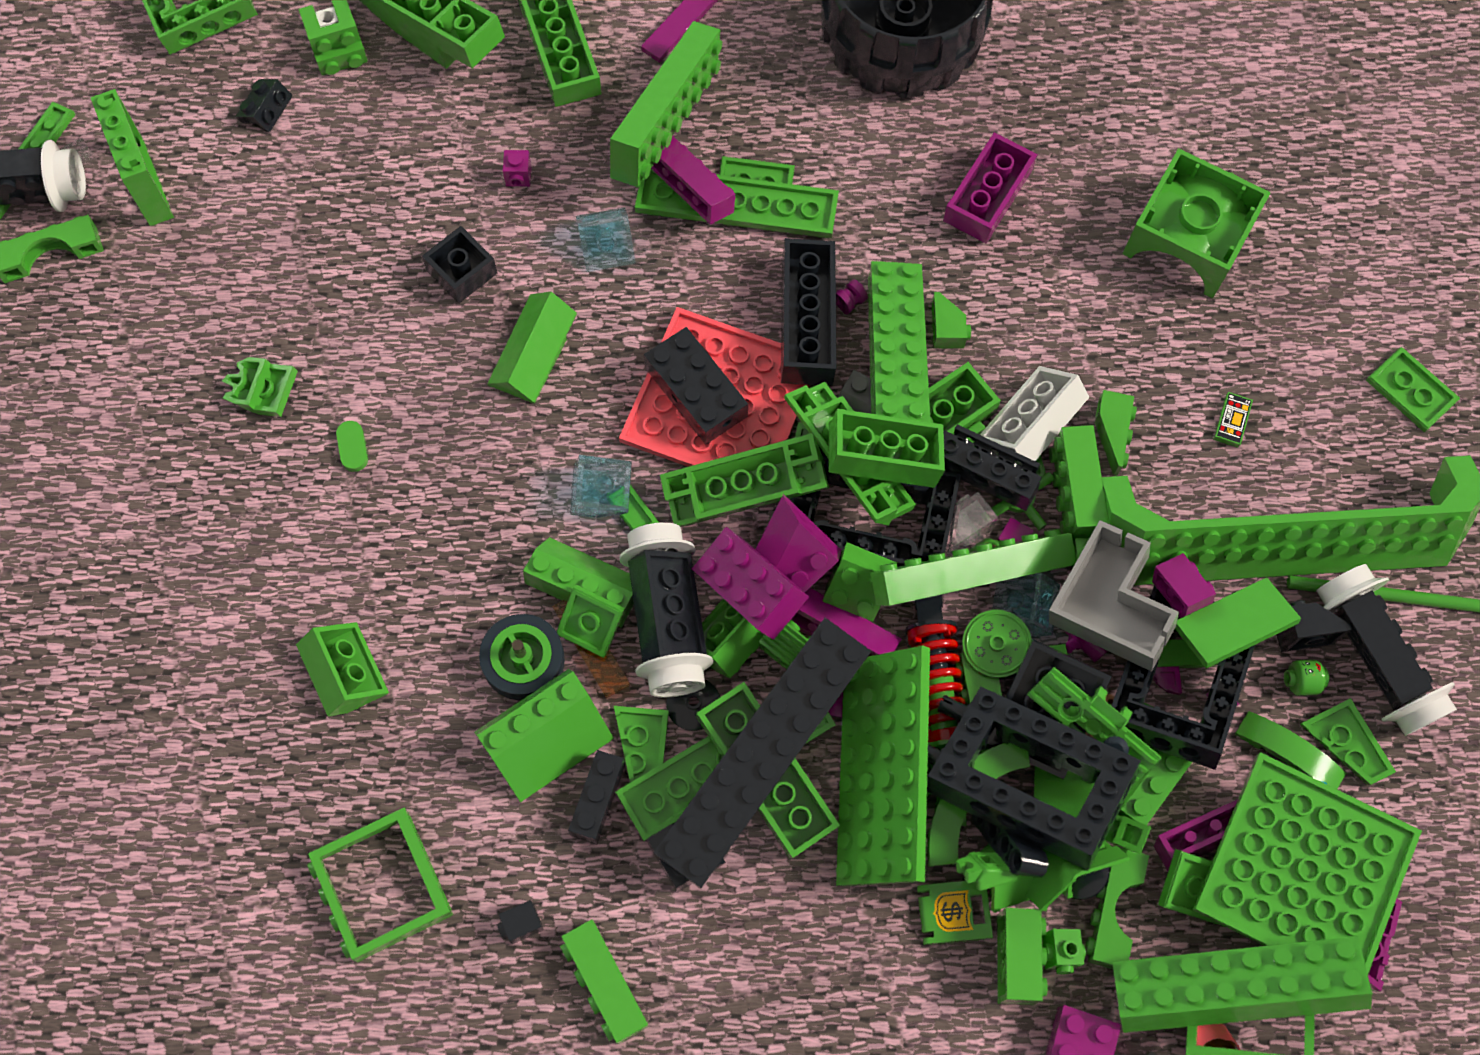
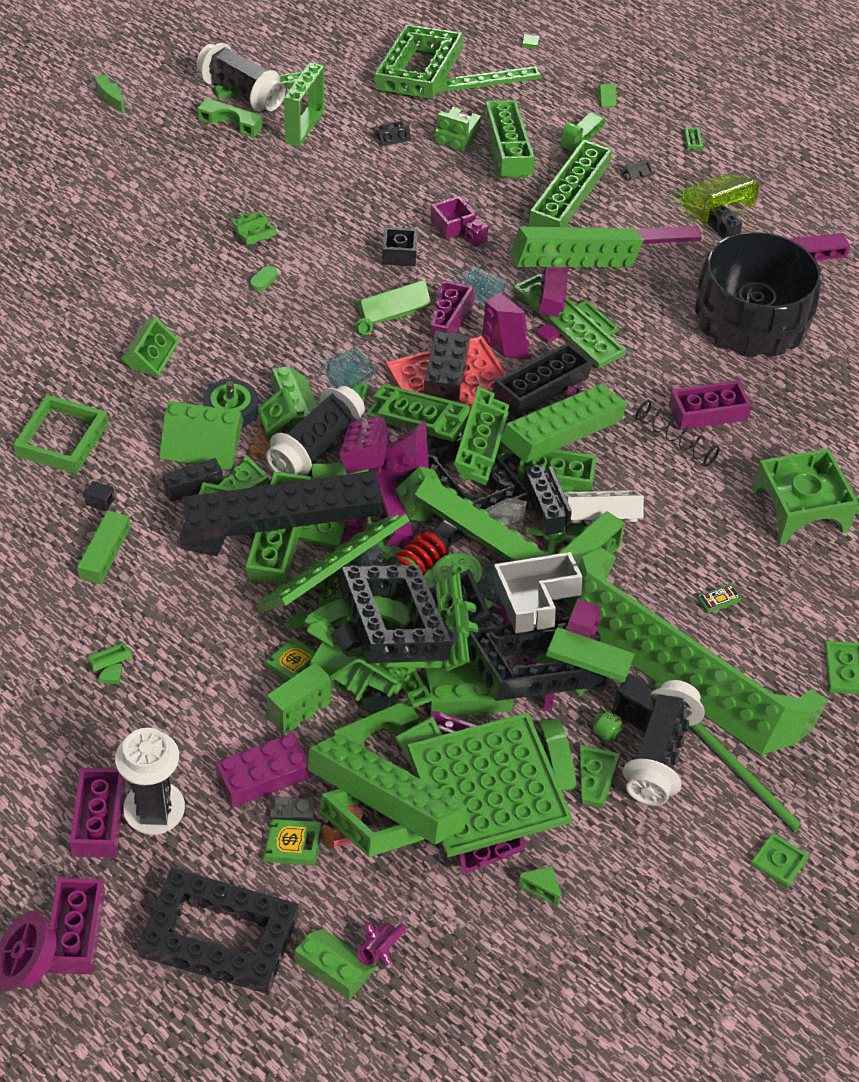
camera: 45 degrees right, 20 degrees down
(468, 176) = (451, 216): none -> magenta piece
(539, 410) = (364, 326): none -> bright green plate
(606, 298) = (452, 307): none -> magenta wedge
(704, 278) = (505, 328): none -> magenta wedge
(732, 238) = (547, 333): none -> magenta tile
(886, 448) = (496, 437): bright green brick -> none
(948, 324) = (611, 442): bright green slope -> none
(1055, 242) = (713, 447): none -> black piece
(1064, 950) = (325, 718): bright green brick -> none
(1113, 424) = (646, 547): bright green slope -> none
(1439, 914) = (542, 884): none -> bright green slope

